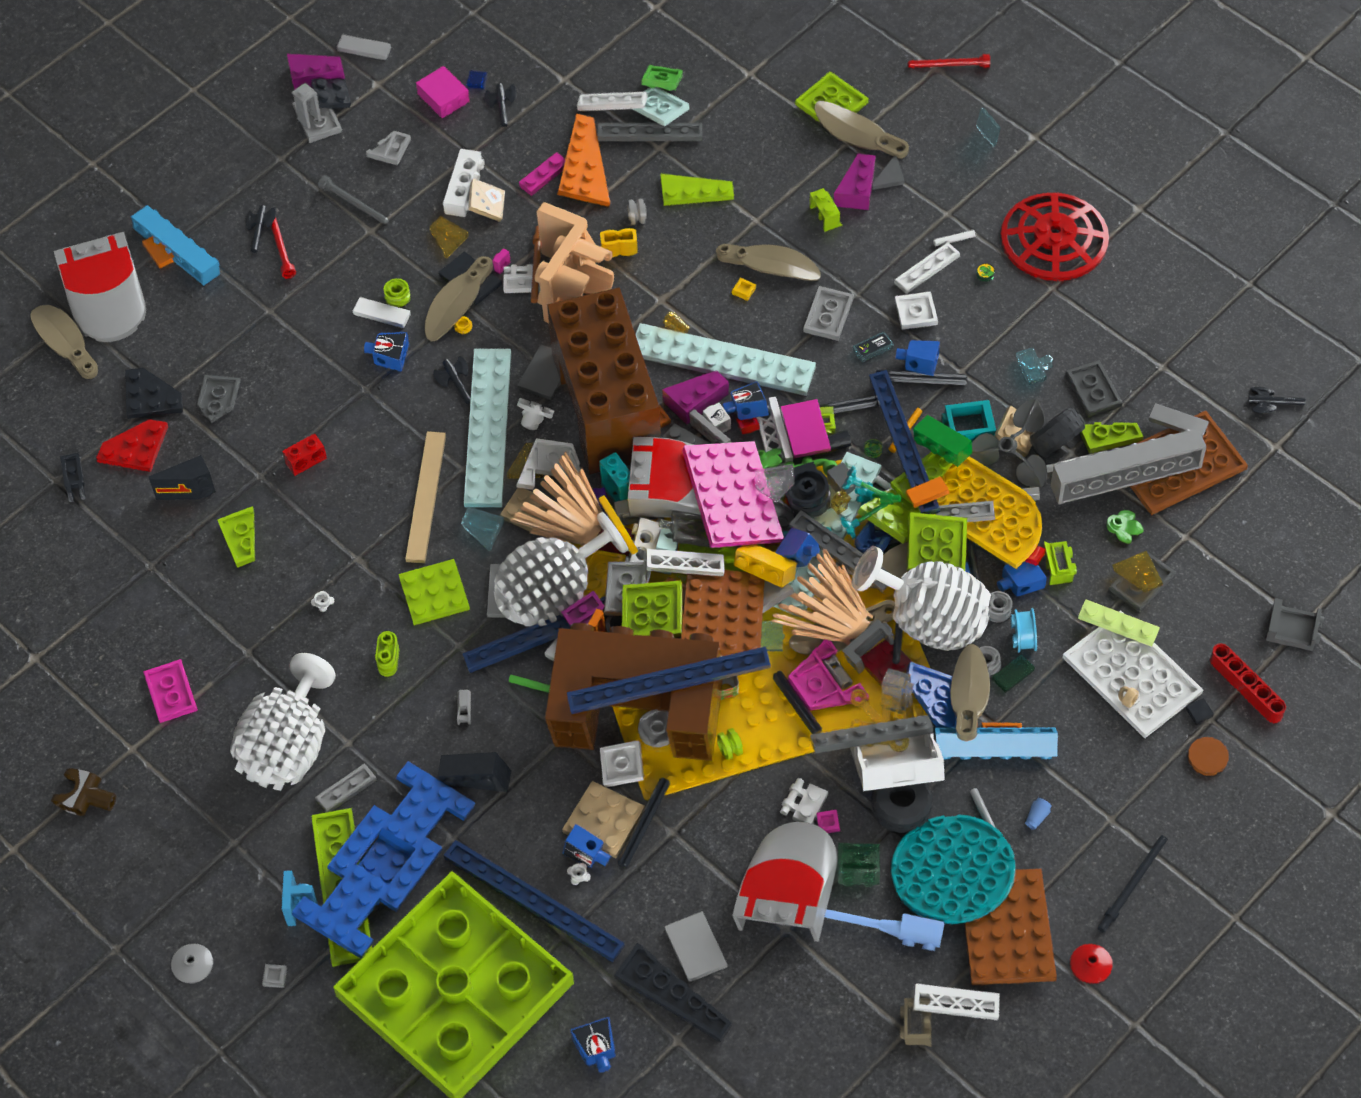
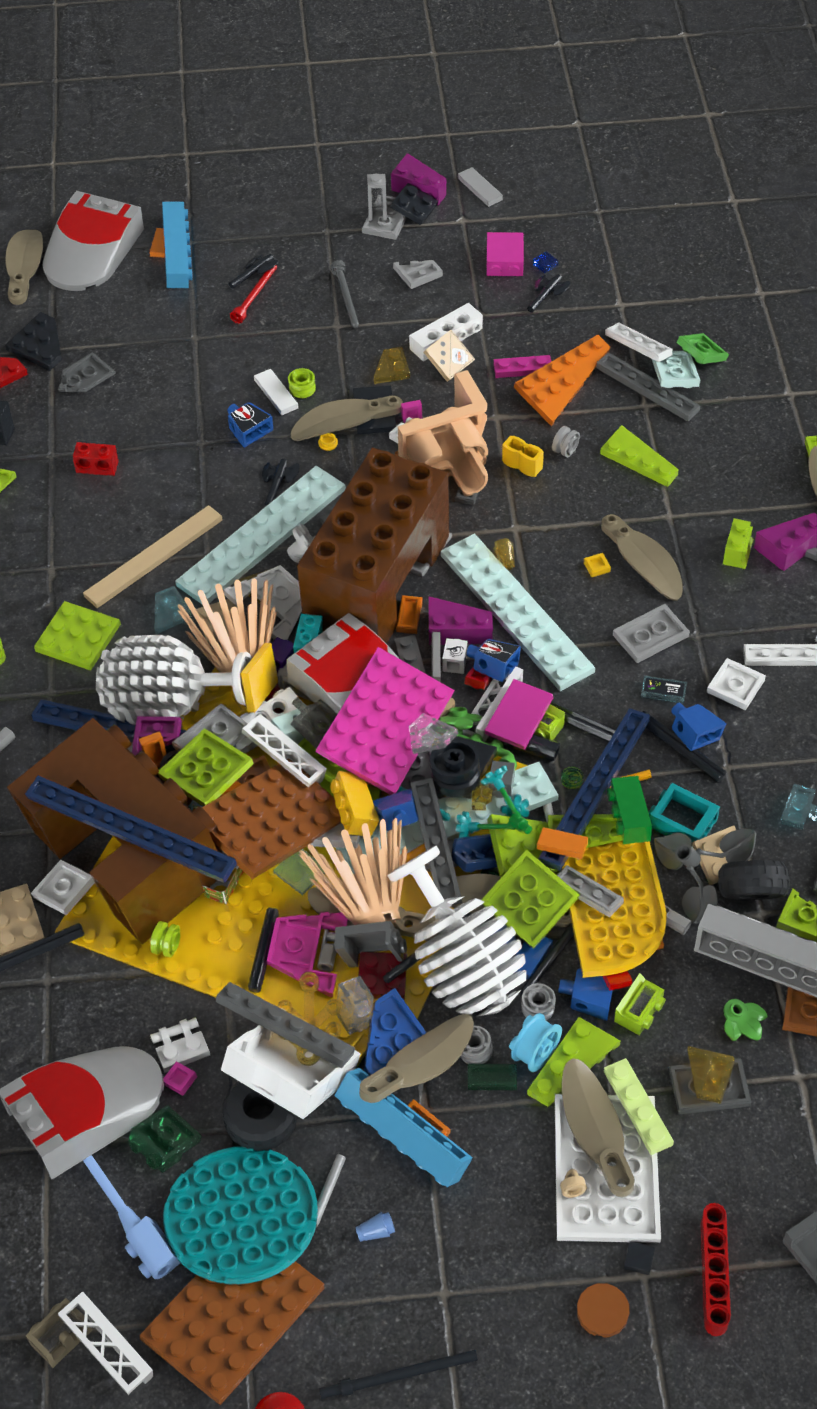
camera: 40 degrees right, 5 degrees down
(1050, 627) = (581, 1042): none -> lime wing
(1107, 653) = (596, 1125): none -> dark tan plant

